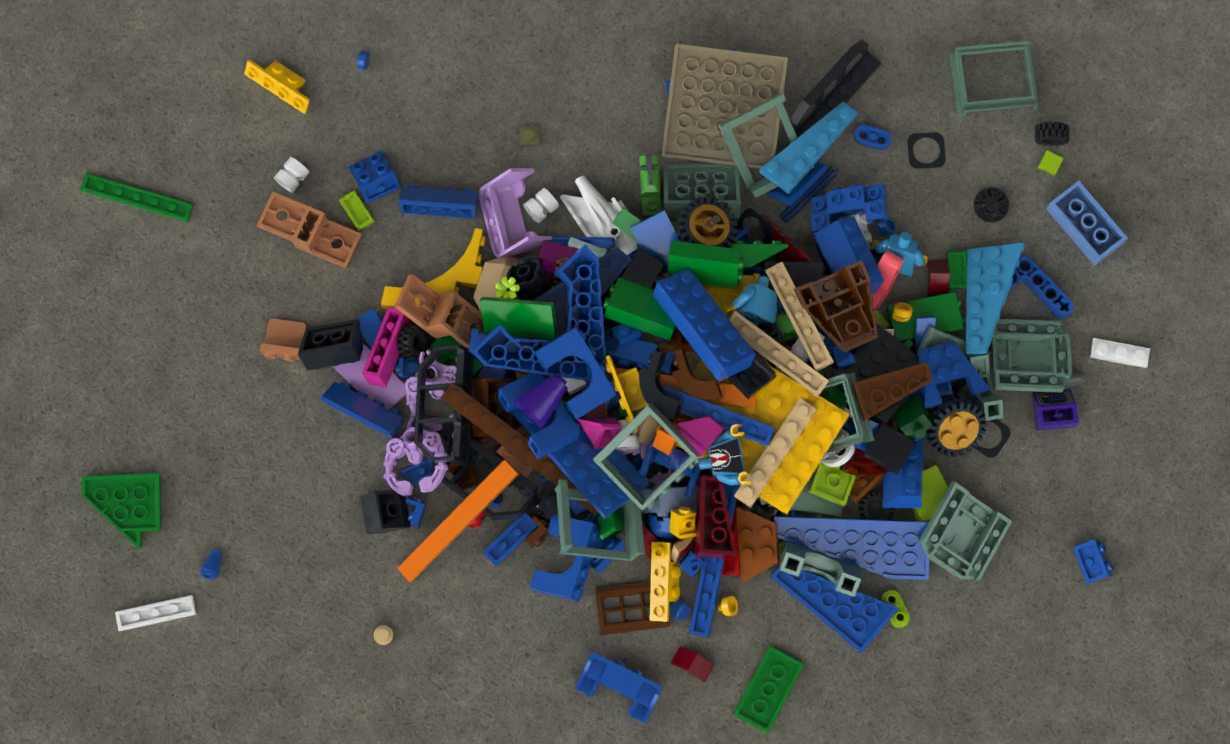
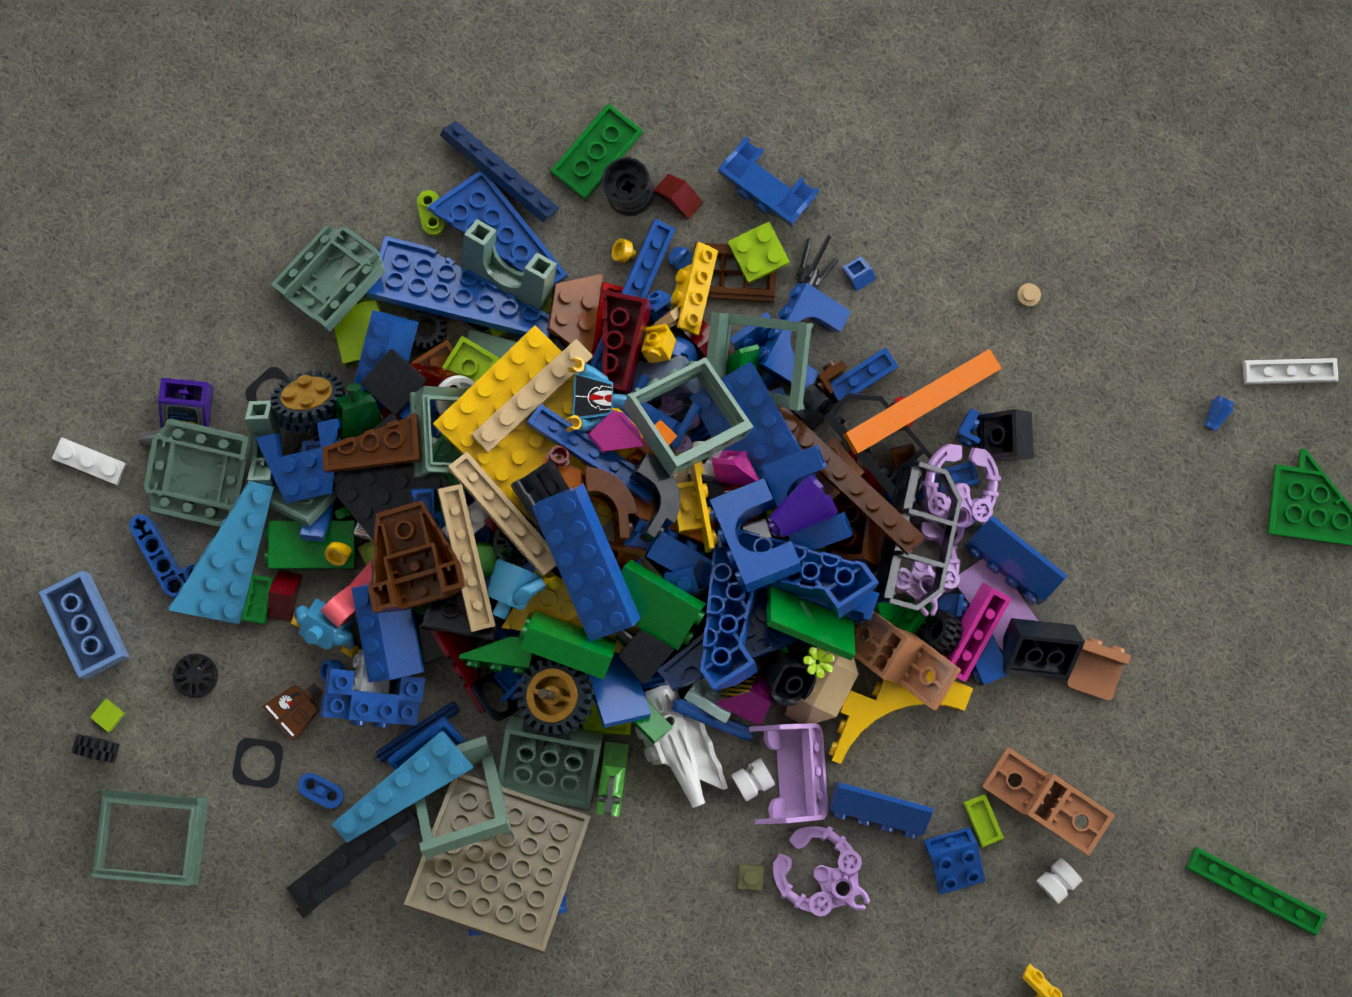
camera: 170 degrees left, 5 degrees up
(469, 145) = (828, 878): none -> lavender piece
(528, 627) = (859, 273): none -> blue slope
(569, 615) = (810, 273): none -> black plant
(615, 625) = (758, 252): none -> lime plate
(743, 411) = (559, 451): none -> dark red plate
(745, 652) = (627, 174): none -> black wheel
(846, 654) = (499, 171): none -> dark blue plate
(908, 192) = (294, 709): none -> reddish brown torso
(1093, 560) = (188, 222): blue bracket -> none

